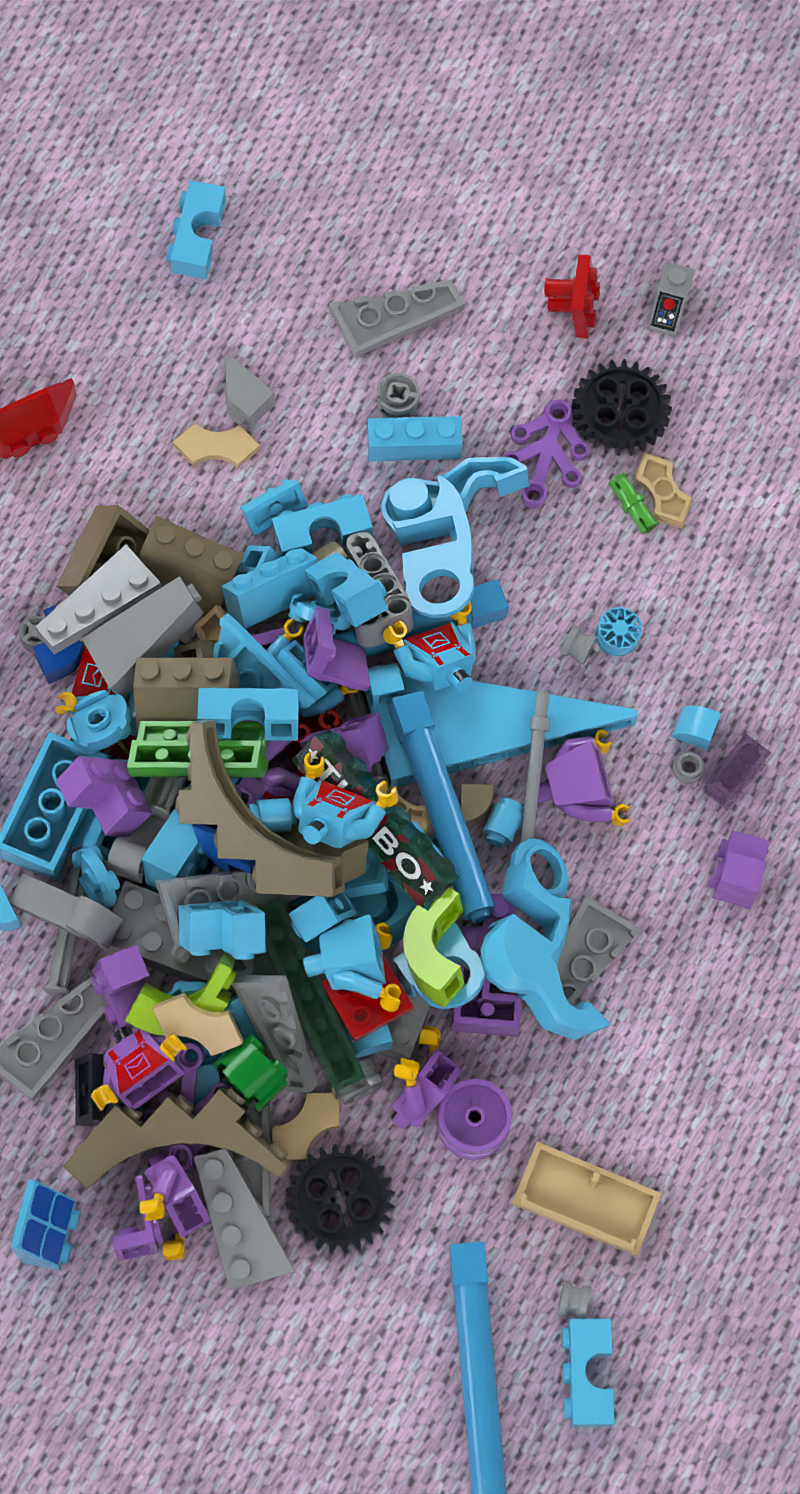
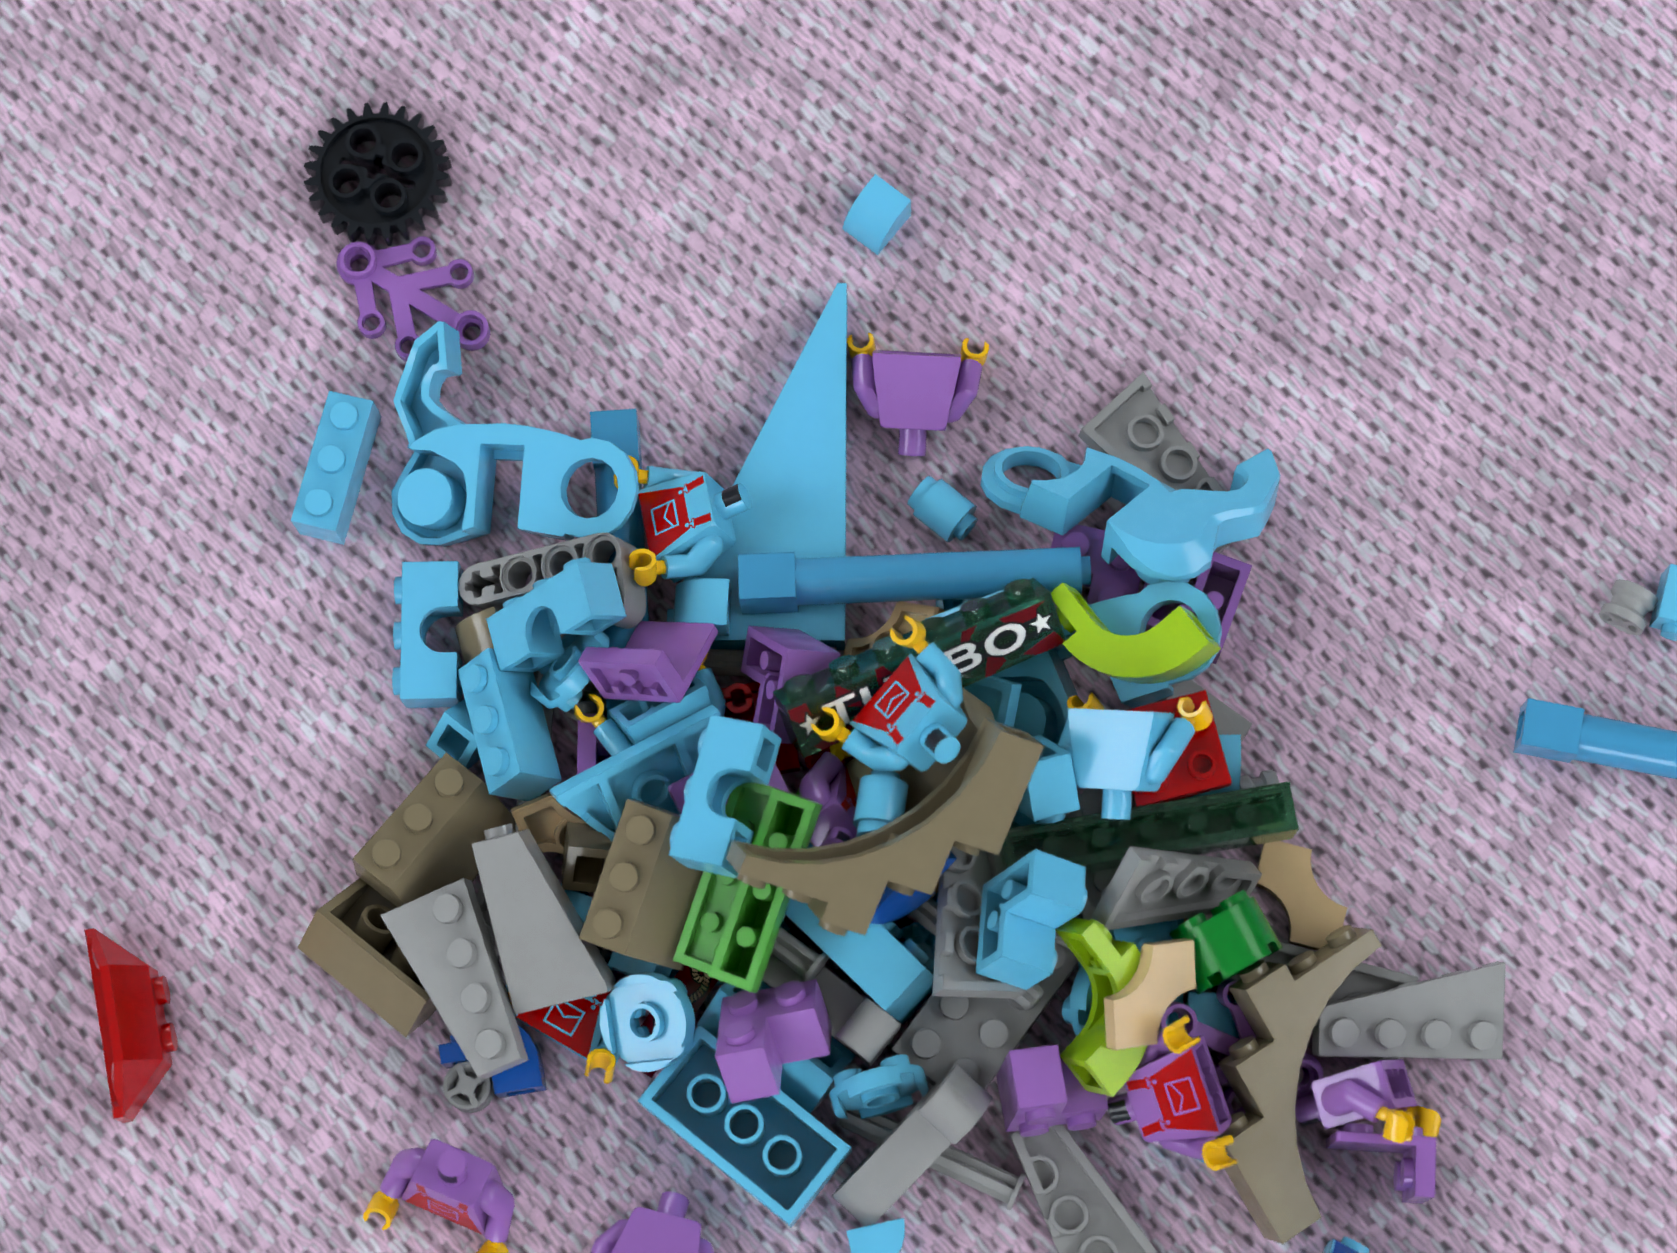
camera: 65 degrees left, 5 degrees up
(88, 1077) = (1174, 1180): black plate -> none
(231, 446) = (244, 771): tan tile -> none
(246, 394) = (186, 688): light grey slope -> none
(261, 510) = (378, 707): medium azure plate -> none
(368, 1189) = (1409, 834): black gear -> none
(385, 318) = (131, 456): light grey wing -> none
(398, 395) = (261, 473): light grey wheel -> none
(423, 1086) = (1297, 711): medium lavender torso -> none
(471, 1139) = (1382, 667): medium lavender wheel -> none
(475, 802) = (904, 534): dark tan brick -> none
(539, 724) = (827, 415): light grey bar -> none
(576, 296) = (193, 181): red plate -> none
(578, 644) = (714, 334): light grey wheel -> none
(586, 1199) = (1494, 552): tan container -> none
(618, 632) = (710, 277): medium azure wheel -> none
(633, 503) = (526, 201): bright green pin -> none
(656, 477) = (537, 154): tan tile -> none
(670, 299) = (235, 58): light grey slope -> none
(688, 758) = (935, 231): light grey plate -> none
(736, 771) = (960, 181): clear purple brick -> none
(741, 870) = (1100, 217): medium lavender brick -> none

